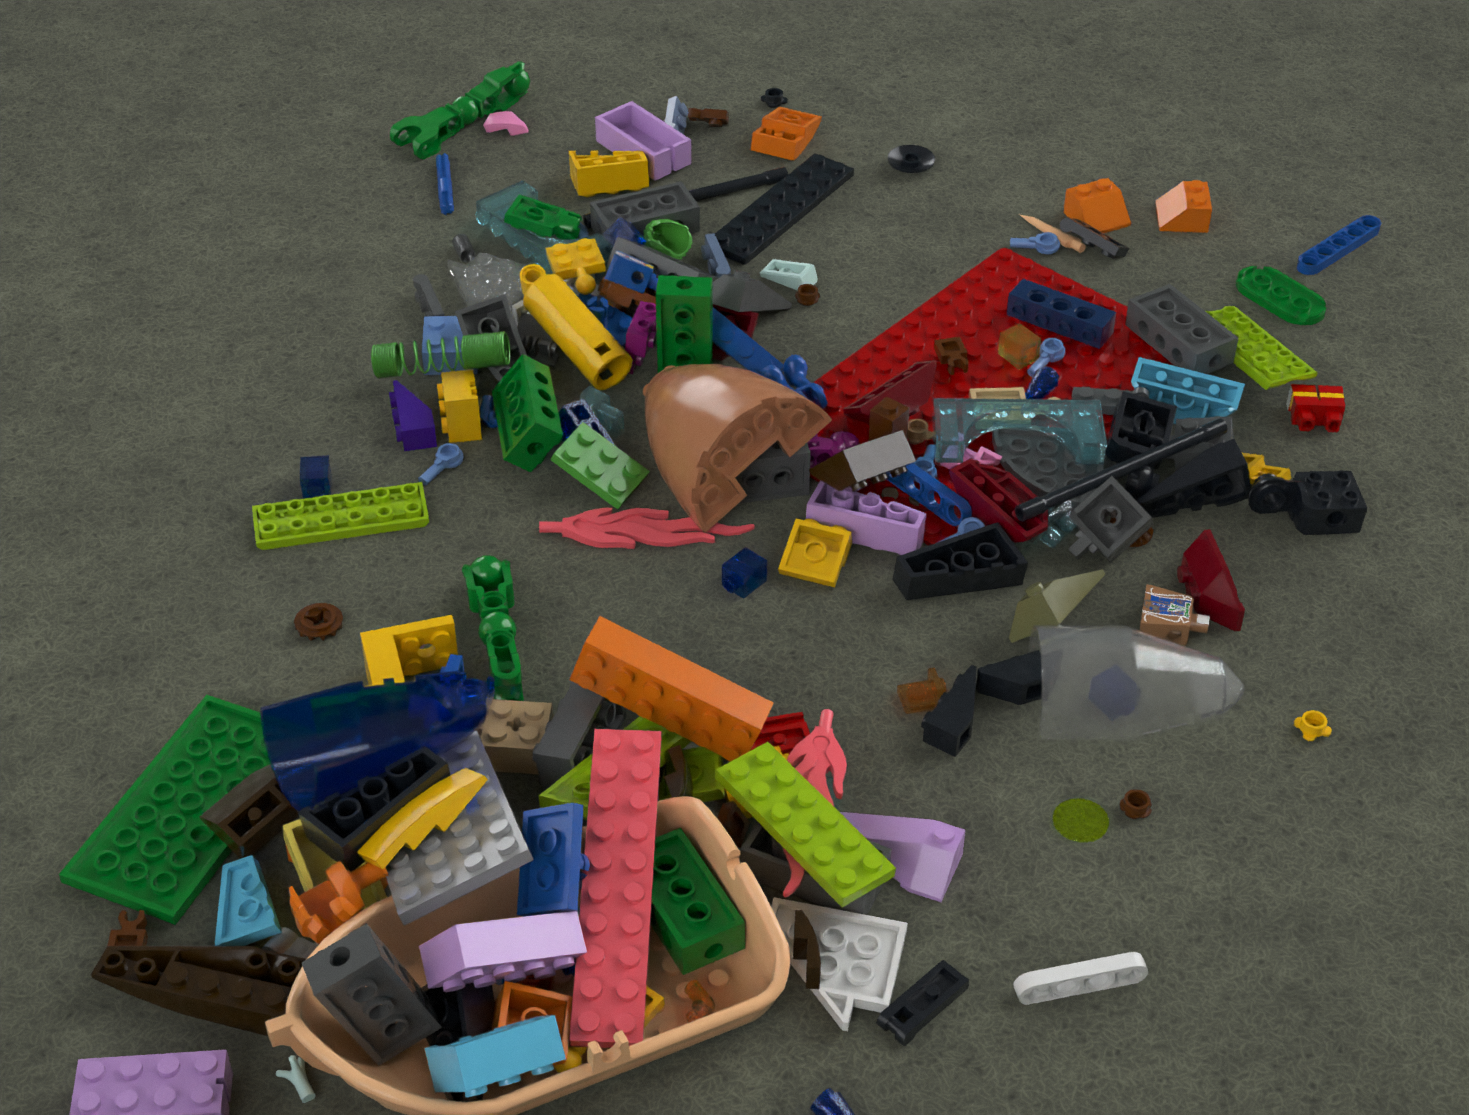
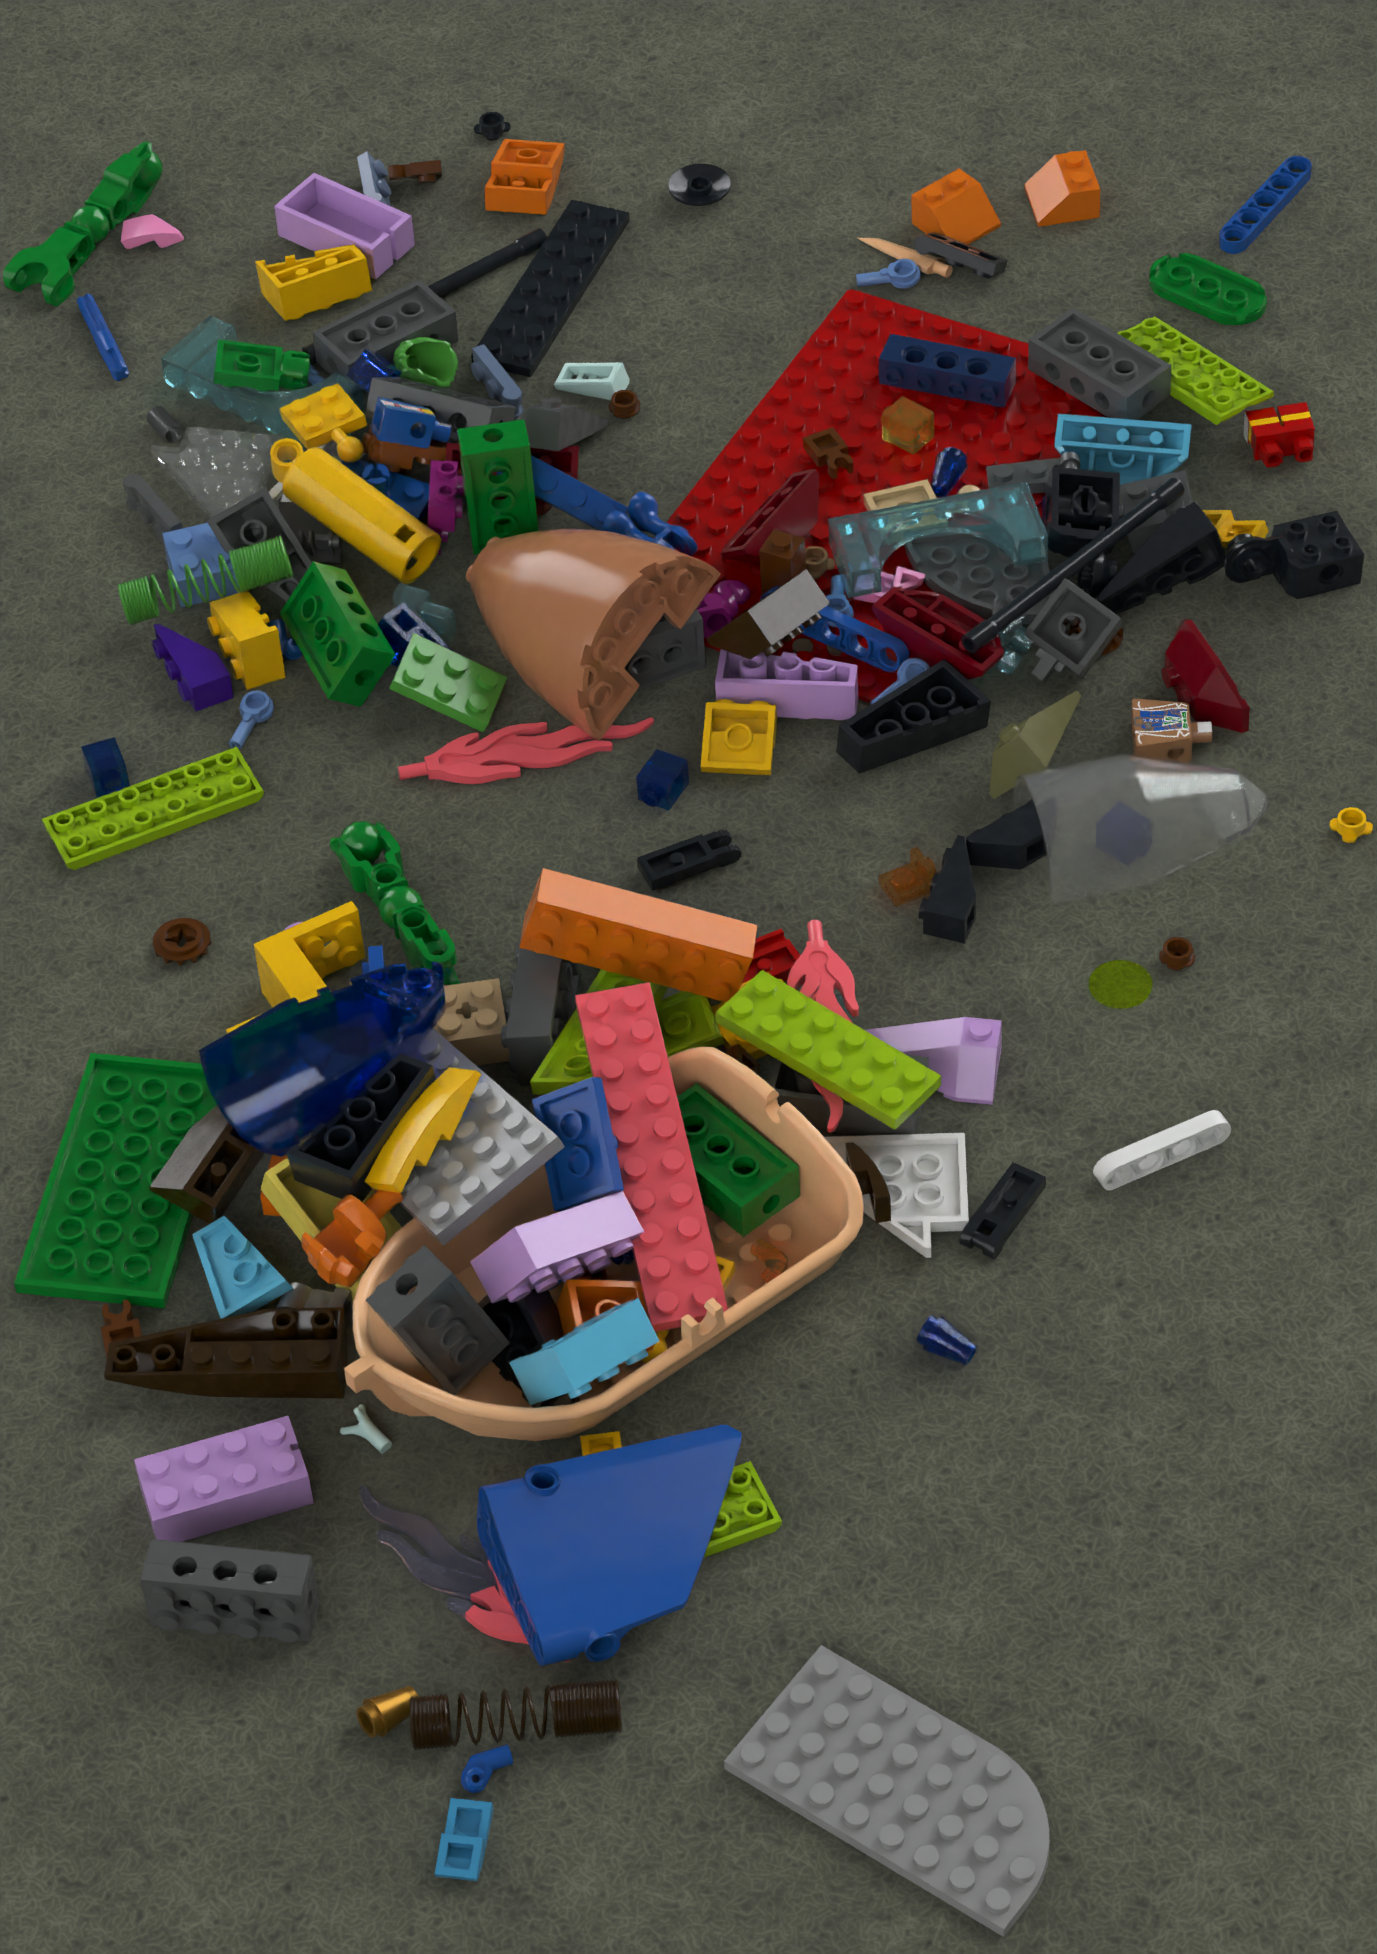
camera: 10 degrees left, 5 degrees up
(679, 782) = (672, 1032): dark brown slope -> none
(745, 639) = (688, 858): none -> black hinge
(1050, 351) = (947, 423): medium blue plate -> none

